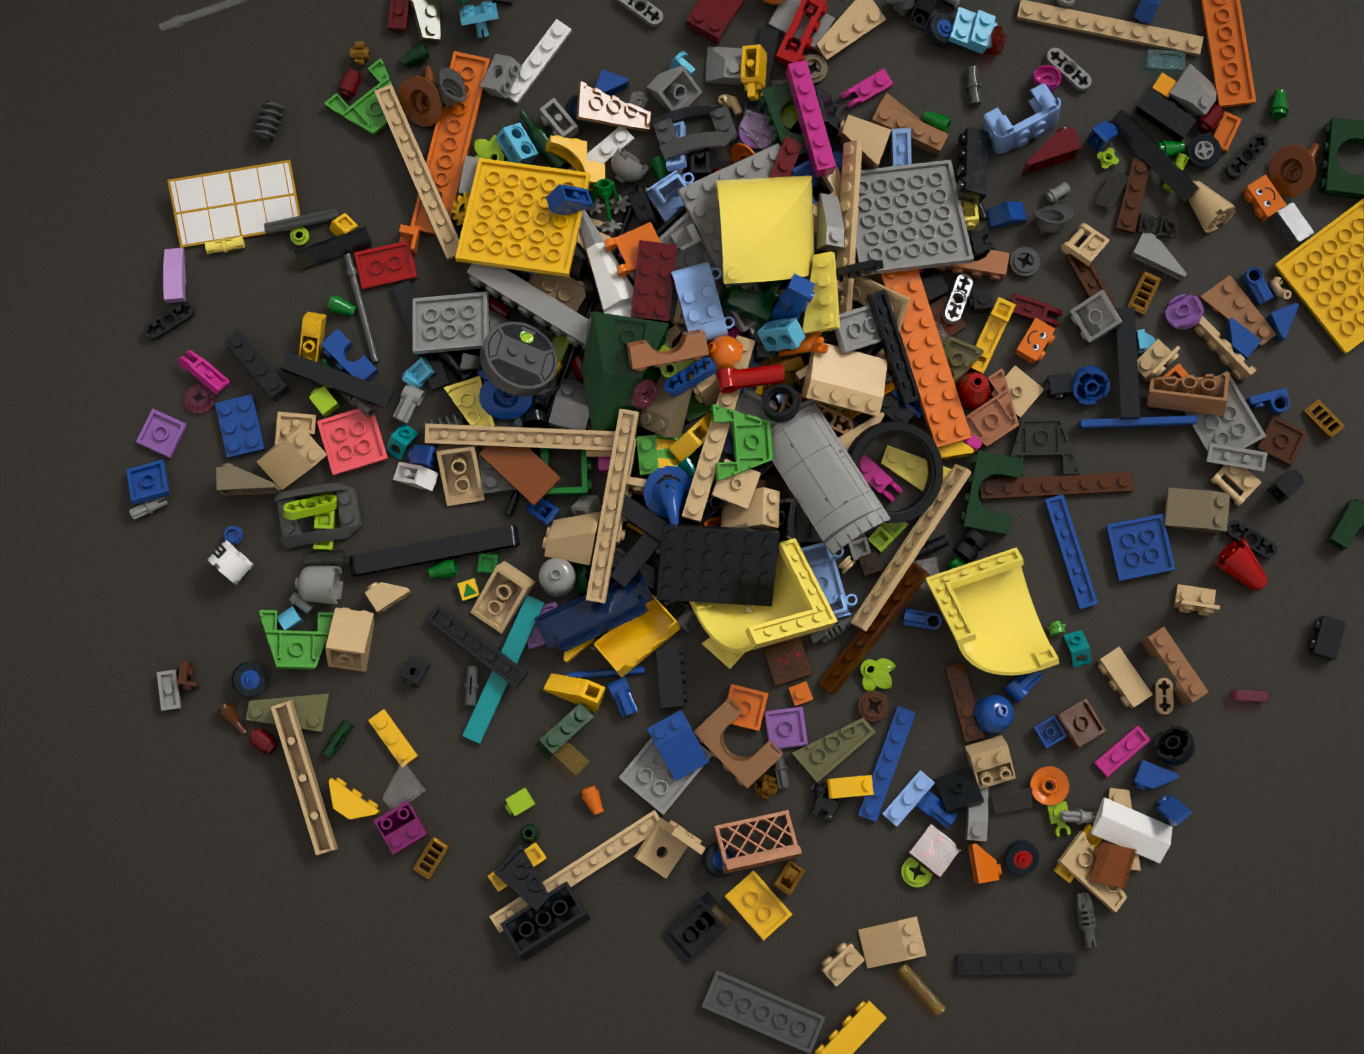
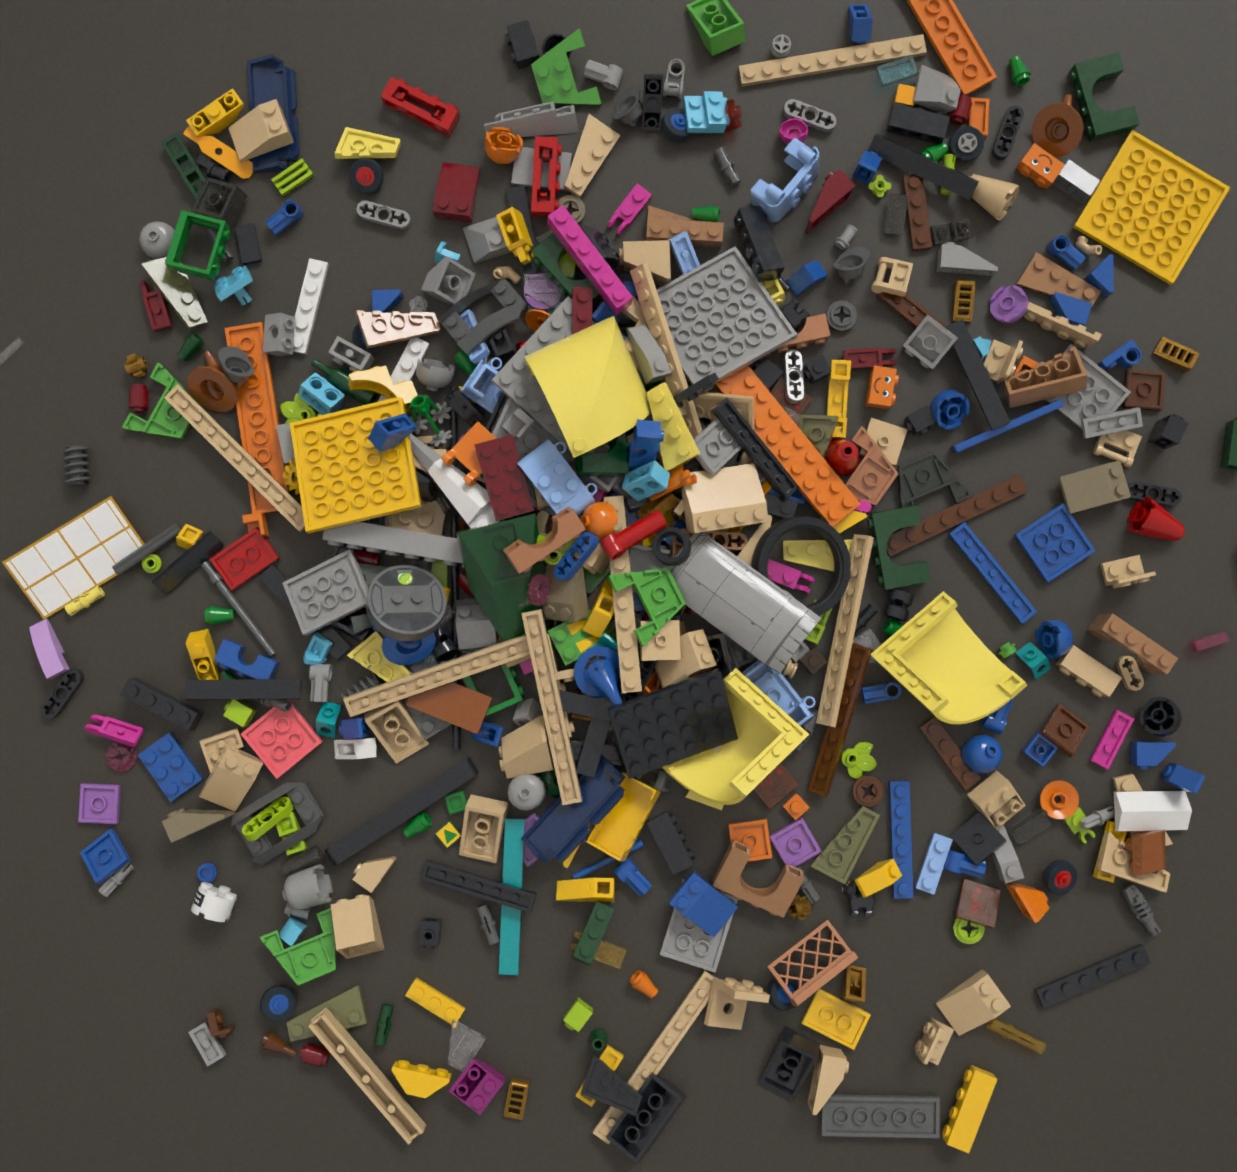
camera: 20 degrees left, 5 degrees up
(730, 947) = (826, 1076): none -> tan slope
(1104, 634) = (1054, 638): none -> blue cylinder

